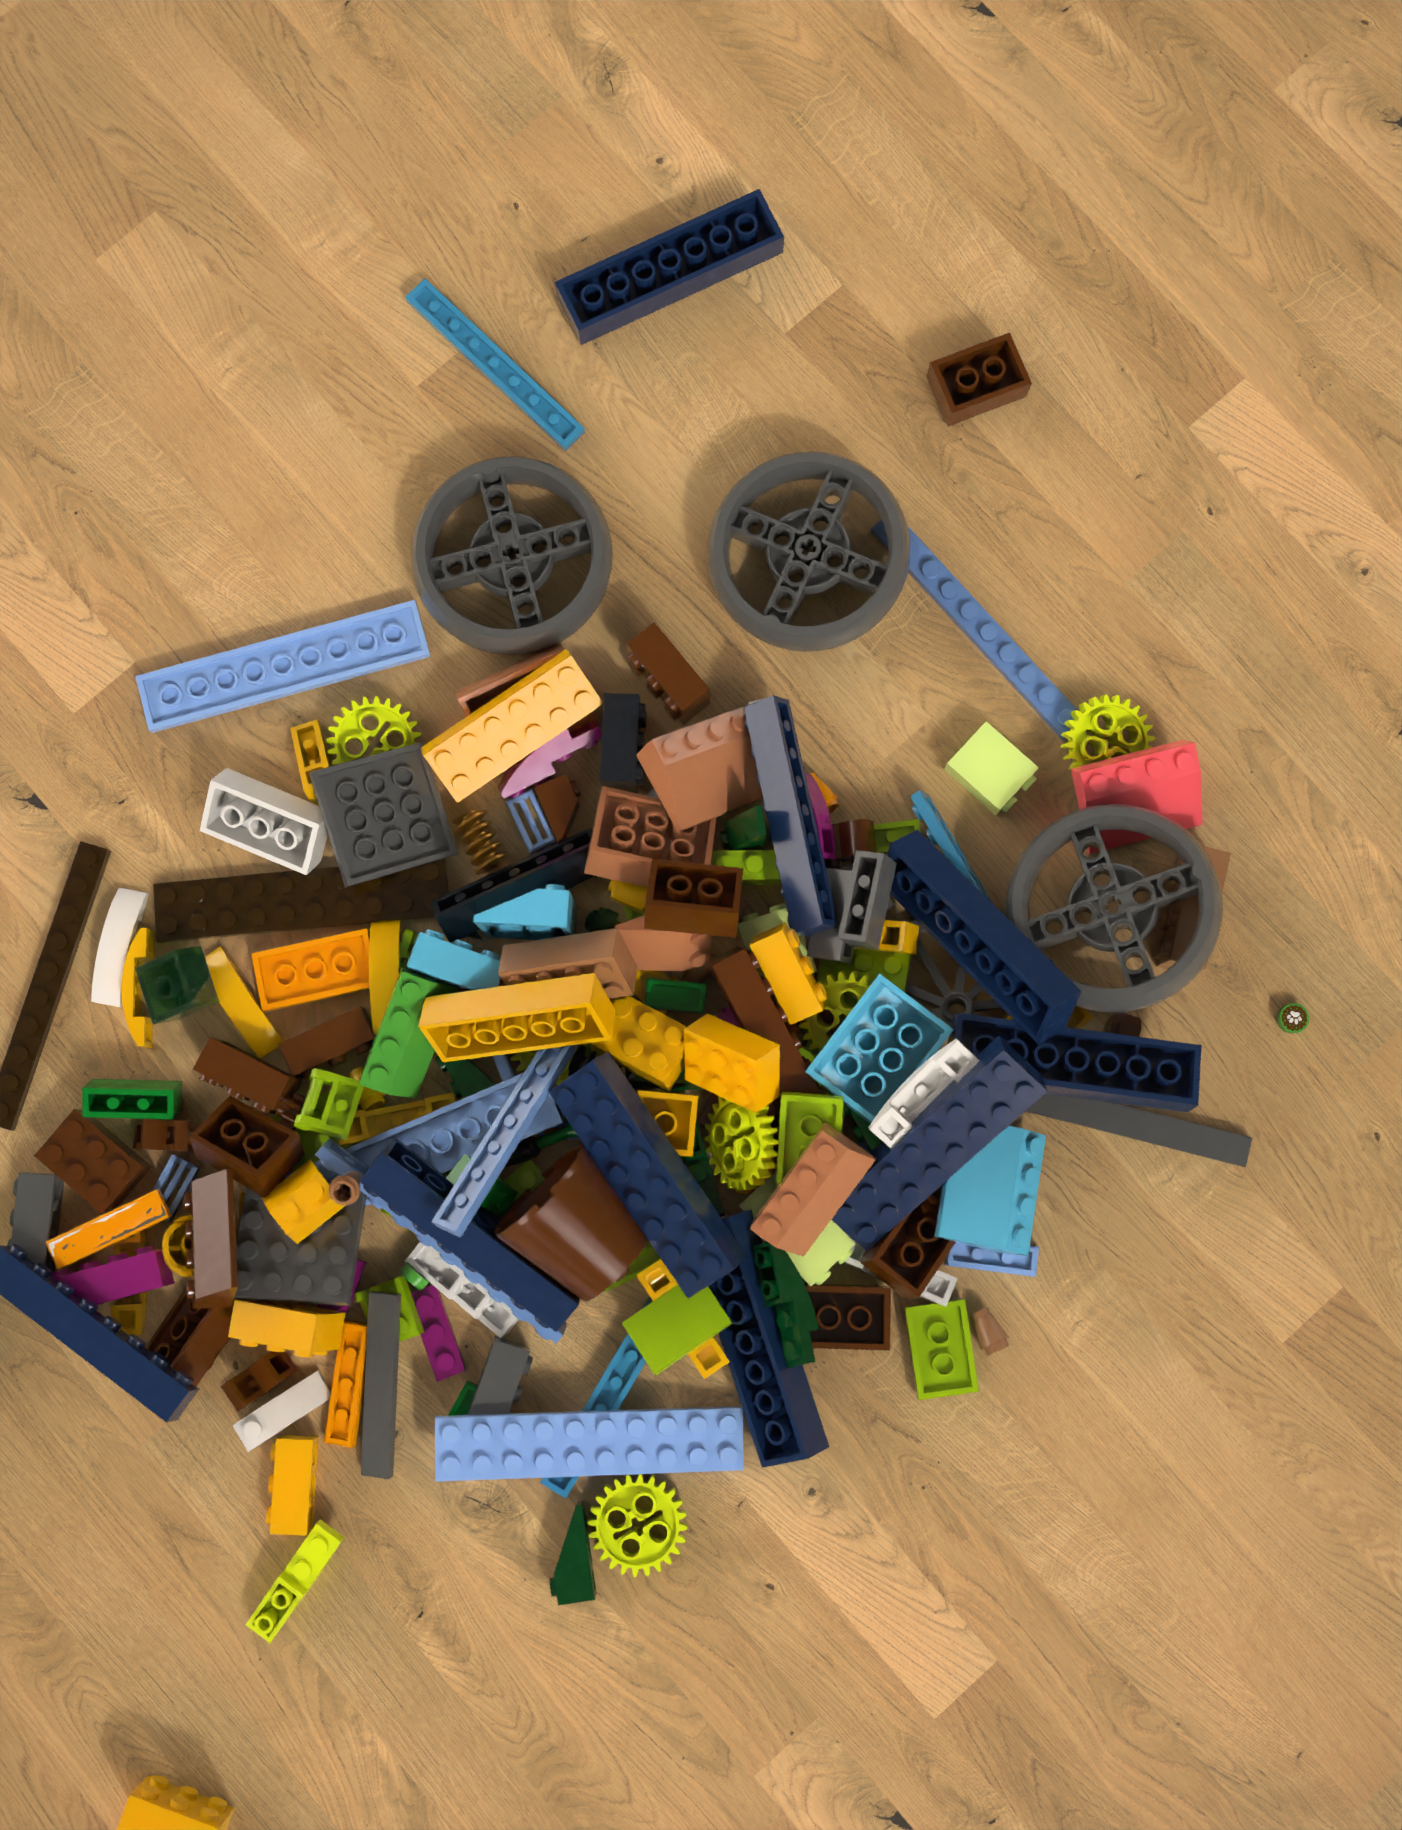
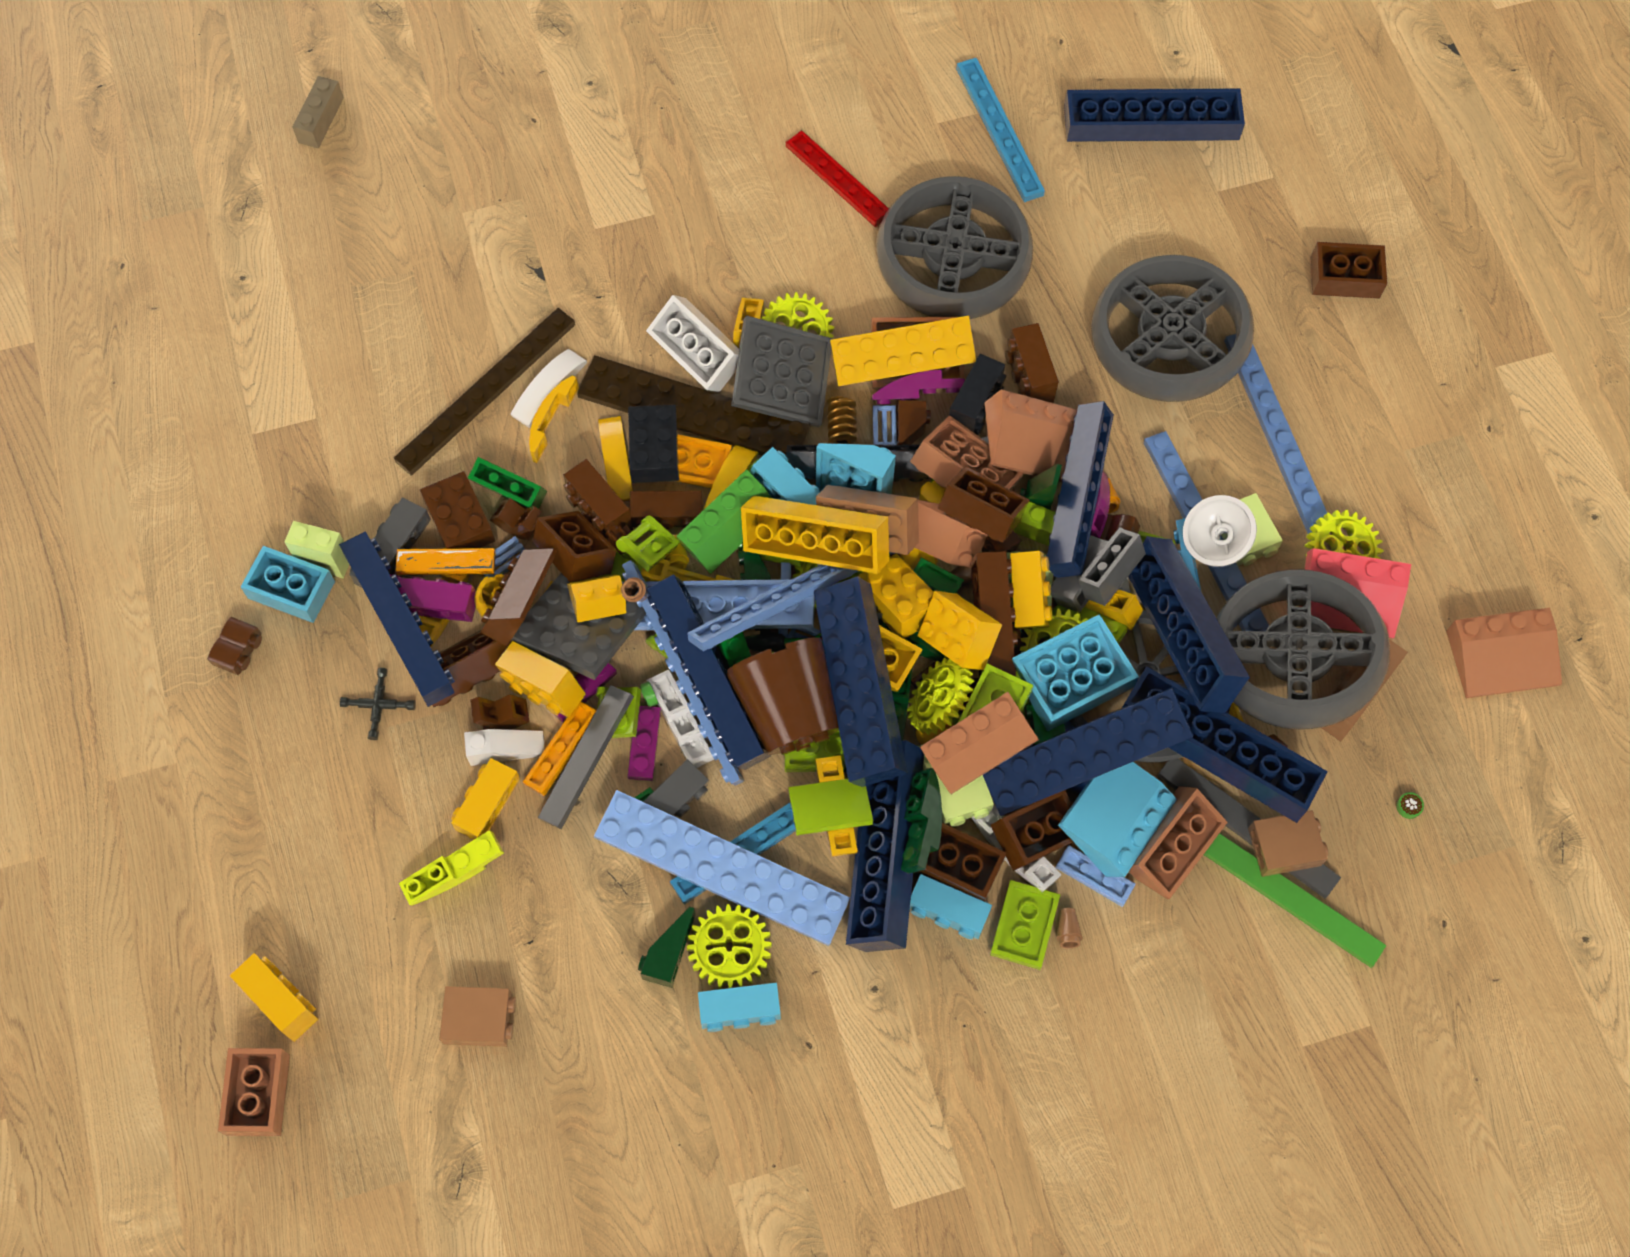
camera: 20 degrees right, 15 degrees down
(116, 1426) = (377, 703): none -> pearl dark grey piece
(176, 985) = (578, 422): clear green brick -> none
(277, 973) = (653, 443): none -> black brick
(282, 666) = (757, 255): light blue plate -> none
(331, 516) = (837, 178): none -> red tile
(404, 1730) = (477, 1016): none -> medium nougat brick
(679, 1586) = (739, 1007): none -> medium azure brick
(854, 1370) = (949, 907): none -> medium azure brick
(920, 1090) = (1096, 705): white slope -> none
(941, 785) = (1186, 497): none -> medium blue plate
(951, 808) = (1210, 520): none -> white hat
(1067, 1180) = (1178, 842): none -> nougat slope
(1184, 1137) = (1288, 845): none -> medium nougat brick
(1206, 1183) = (1296, 901): none -> bright green tile
(1330, 790) = (1506, 652): none -> nougat slope

